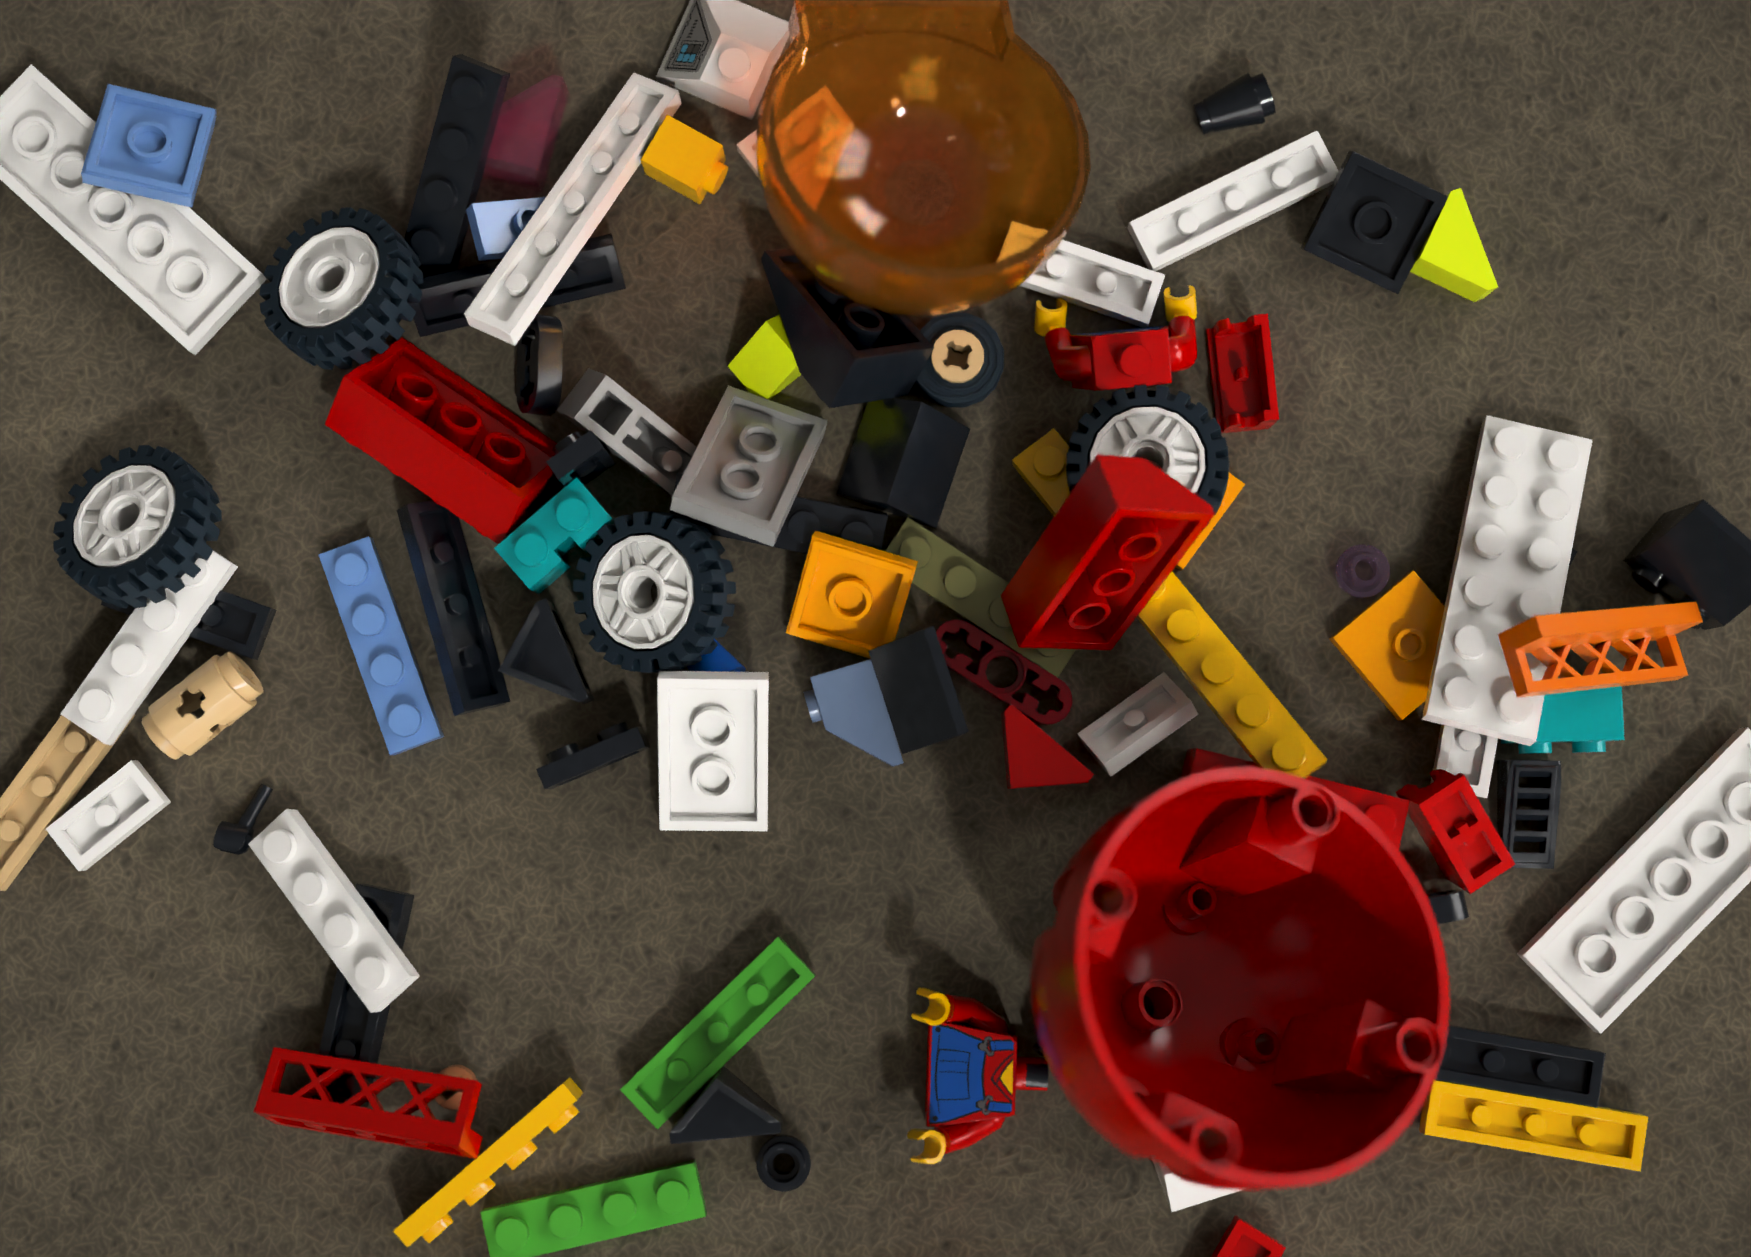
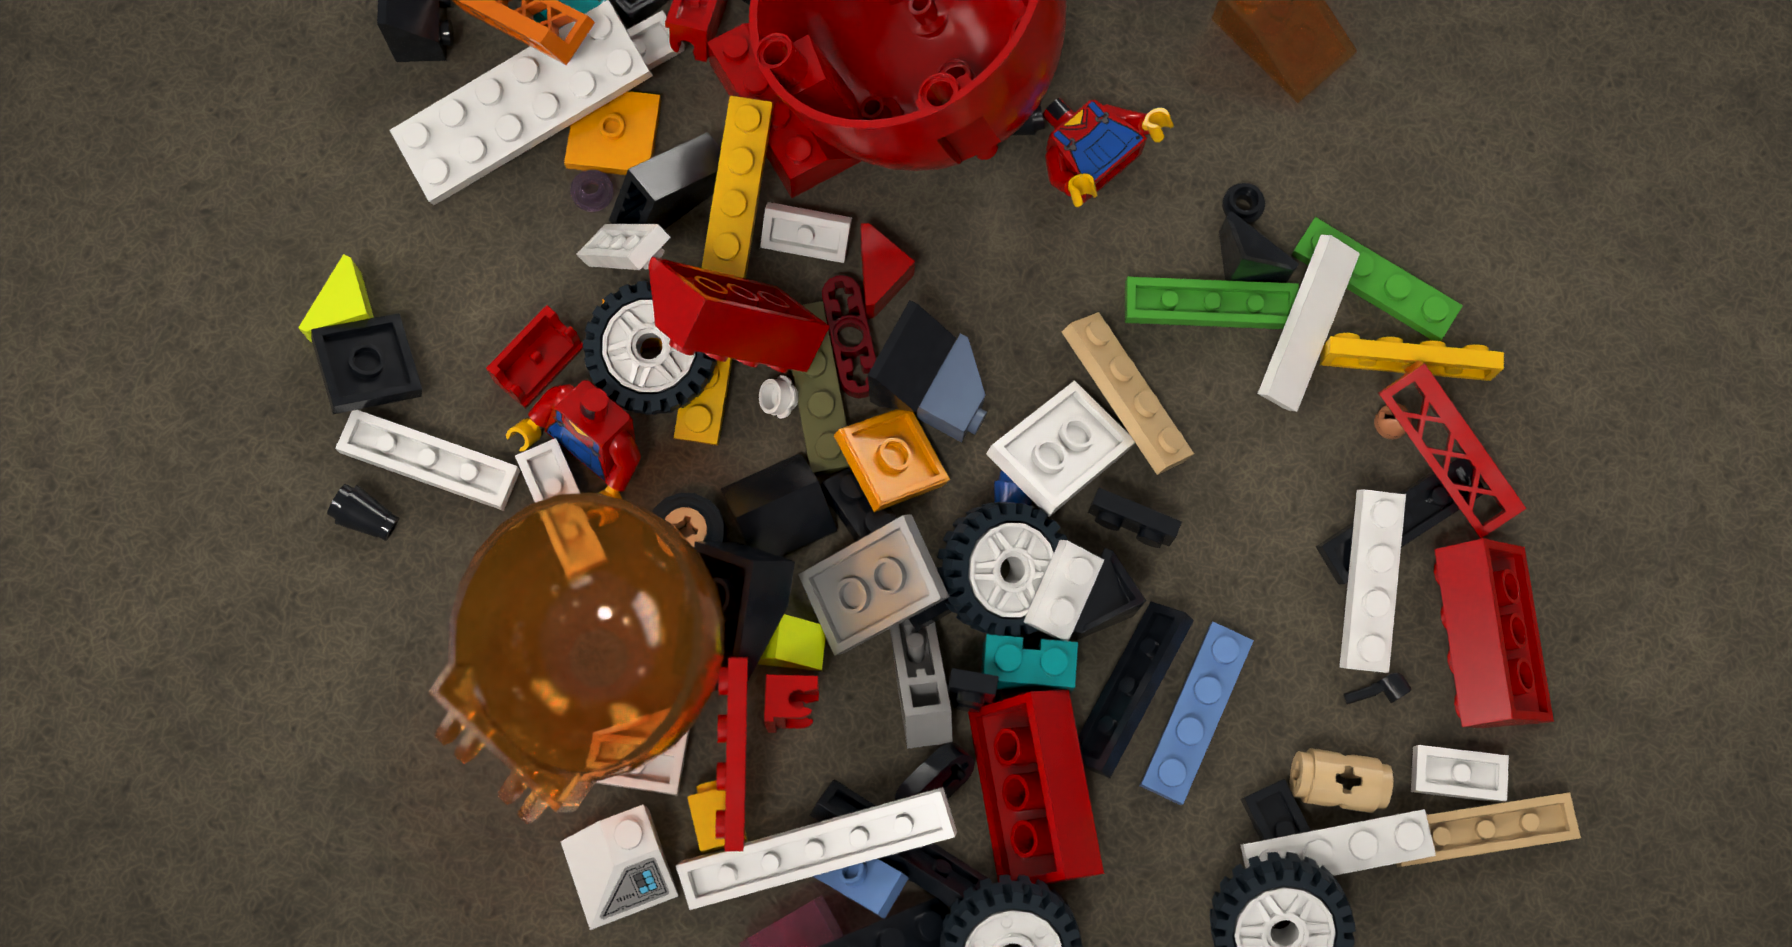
camera: 135 degrees left, 10 degrees down
(185, 968) = (1492, 634): none -> red slope
(584, 622) = (1063, 590): none -> white plate
(610, 1098) = (1308, 323): none -> white tile
(710, 868) = (1127, 393): none -> tan plate
(726, 302) = (786, 700): none -> red hinge
(728, 215) = (732, 773): none -> red plate
(1003, 552) = (778, 396): none -> white plate
(1263, 524) = (624, 246): none -> white plate
(1297, 635) = (668, 184): none -> black slope

